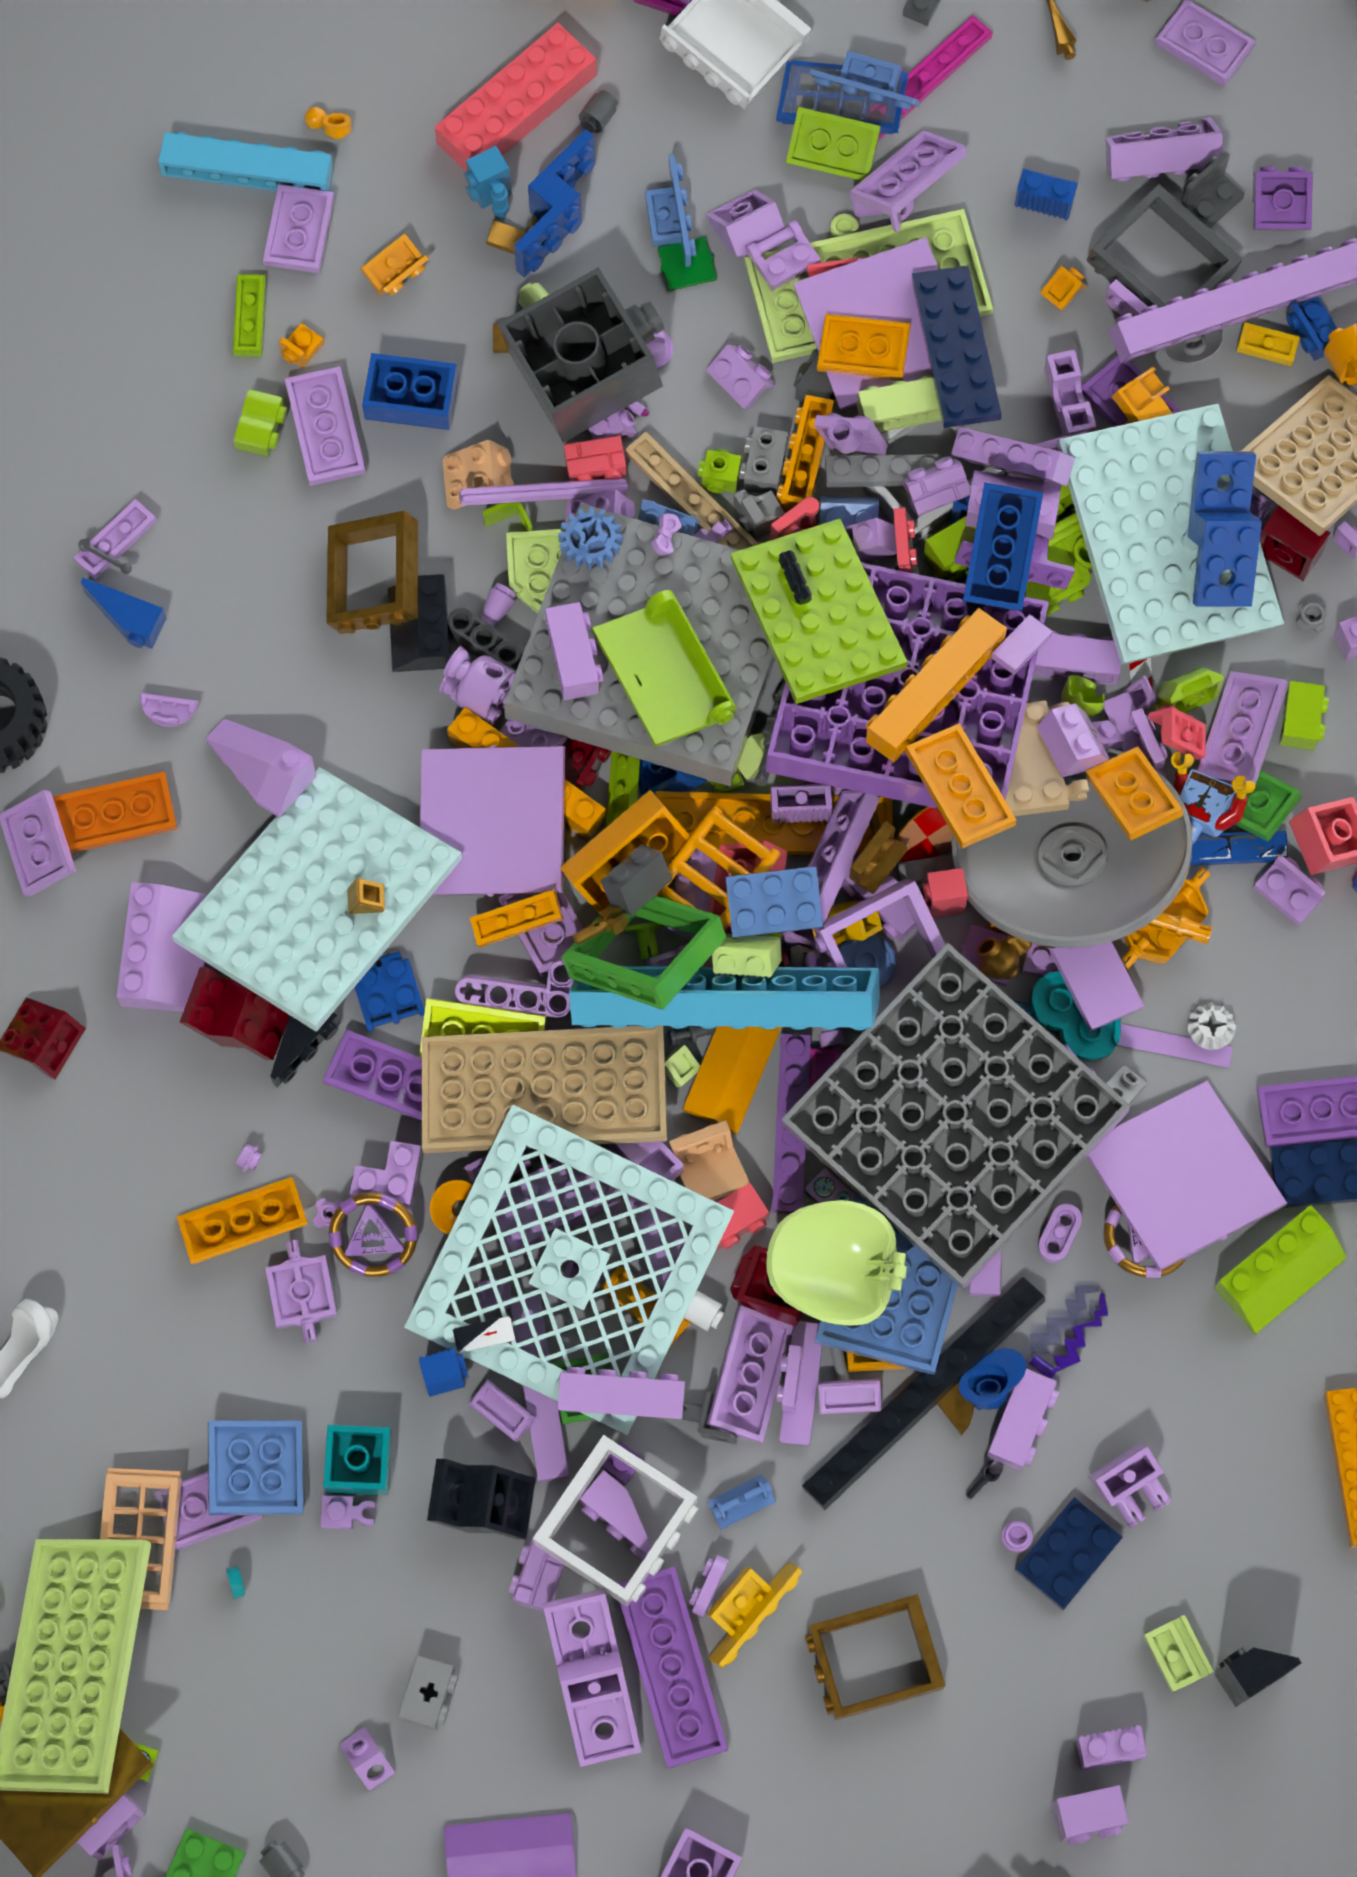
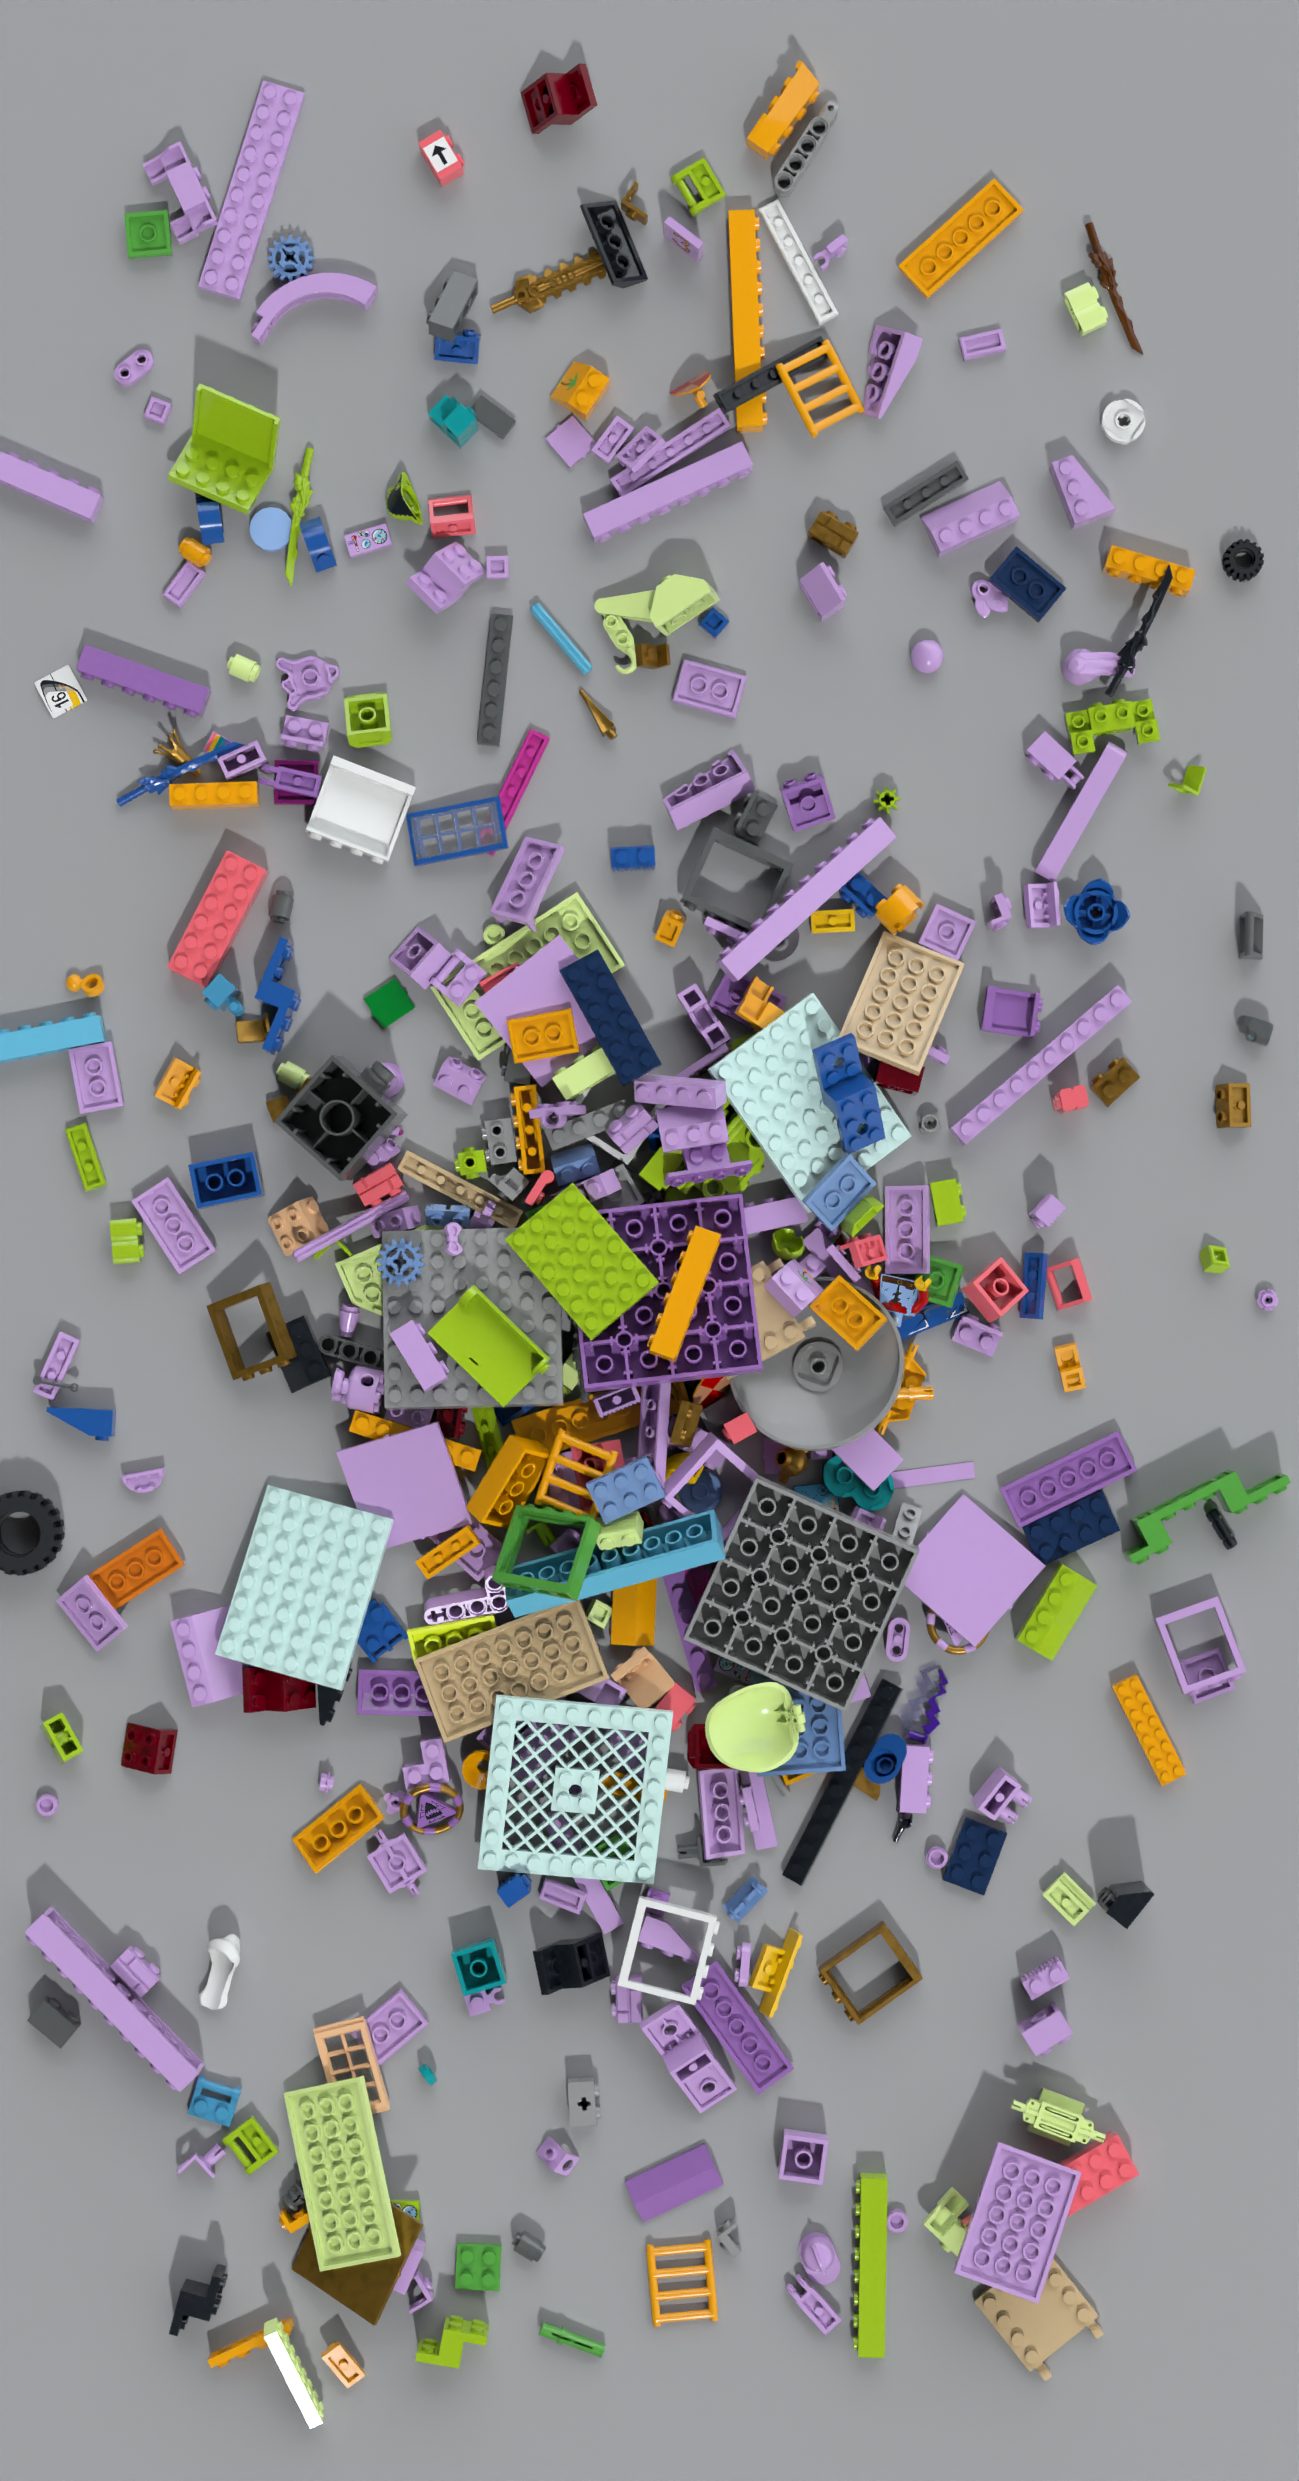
camera: 20 degrees left, 15 degrees up
(255, 1468) = (412, 1995): medium blue plate -> none
(265, 765) = (229, 1502): lavender wedge -> none
(300, 346) = (132, 1168): light orange bracket -> none
(365, 897) = (339, 1580): pearl gold slope -> none
(483, 1334) = (533, 1856): sticker -> none
(487, 1297) = (536, 1819): lavender tile -> none
(611, 920) = (512, 1545): pearl gold bar -> none
(621, 1395) = (641, 1864): lavender brick -> none
(636, 879) = (523, 1504): dark grey brick -> none
(667, 214) = (361, 973): medium blue bracket -> none
(795, 577) = (557, 1246): black axle -> none
(833, 144) = (464, 874): lime plate -> none
(849, 1396) = (793, 1802): lavender tile -> none
(870, 76) = (472, 815): medium blue bracket -> none
(904, 531) = (627, 1188): coral plate -> none
(960, 786) = (728, 1367): light orange plate -> none
(1003, 547) = (698, 1174): blue brick -> none
(1021, 644) = (734, 1237): lavender tile -> none
(1171, 646) = (839, 1192): none -> medium blue plate
(1201, 1034) = (949, 1462): white gear -> none

